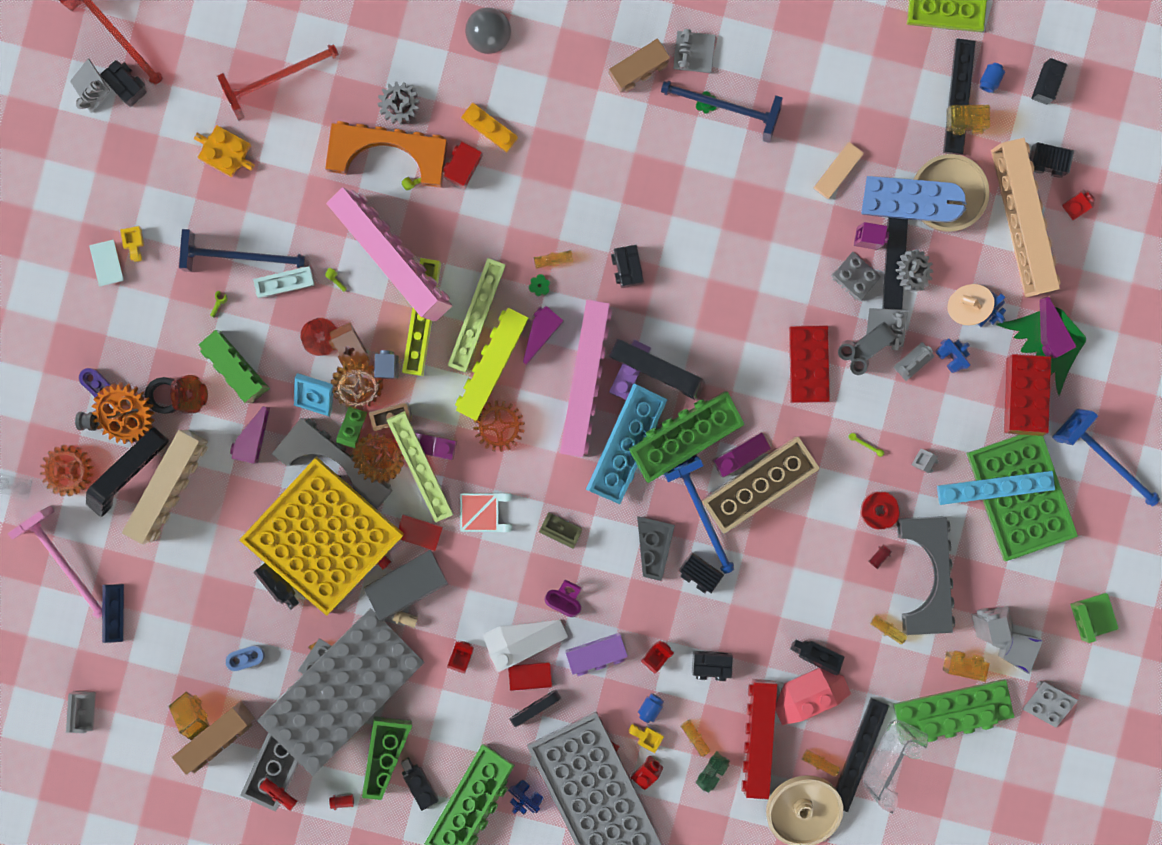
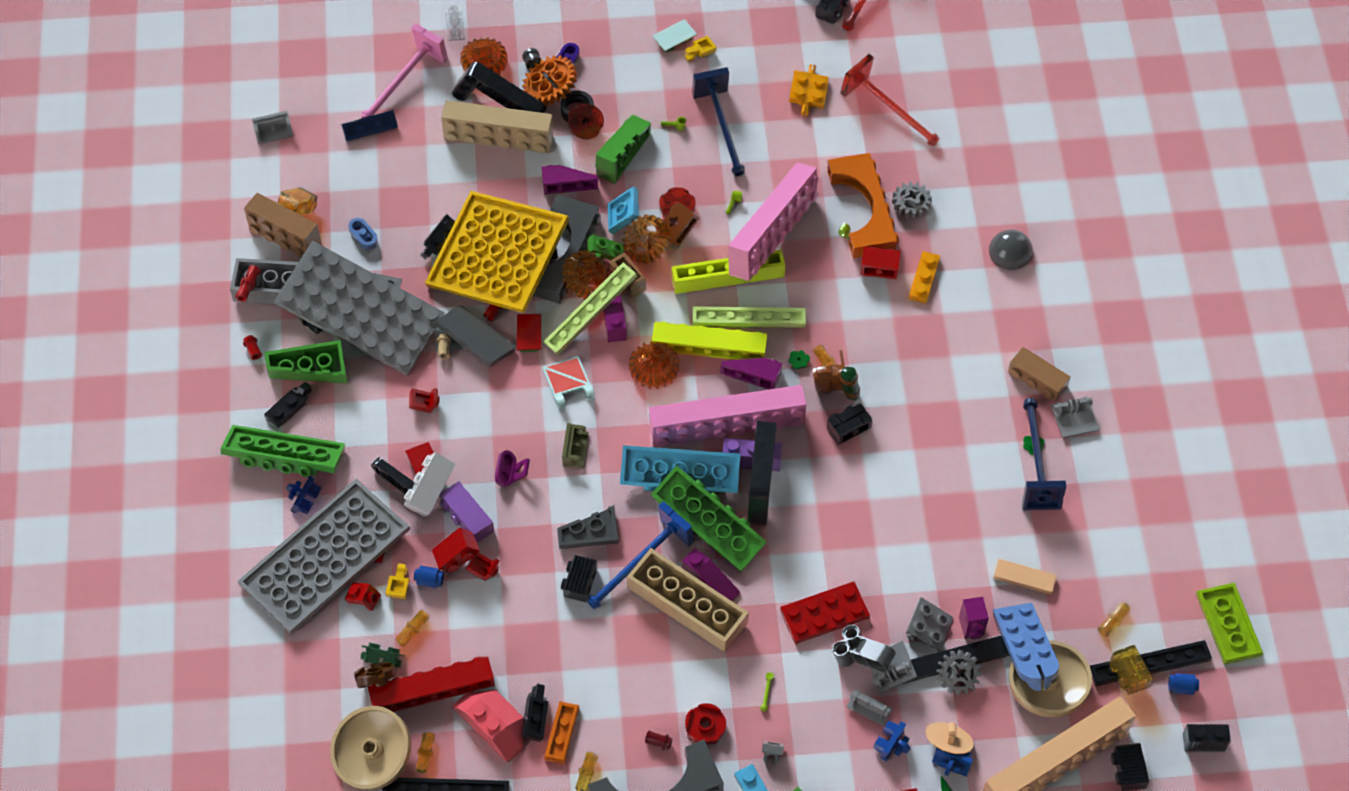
camera: 70 degrees right, 30 degrees down
(284, 282) = (714, 164): light aqua plate -> none
(386, 365) = (672, 253): sand blue brick -> none
(518, 642) = (451, 441): white wedge -> none
(560, 682) = (428, 484): none -> white brick
(581, 260) = (837, 378): none -> dark orange piece
(638, 678) = (455, 550): none -> red brick
(712, 664) = (492, 617): black brick -> none
(744, 784) = (377, 674): none -> reddish brown plate
(841, 637) = (561, 732): none -> orange tile
(908, 109) = (1114, 619): none -> clear yellow axle

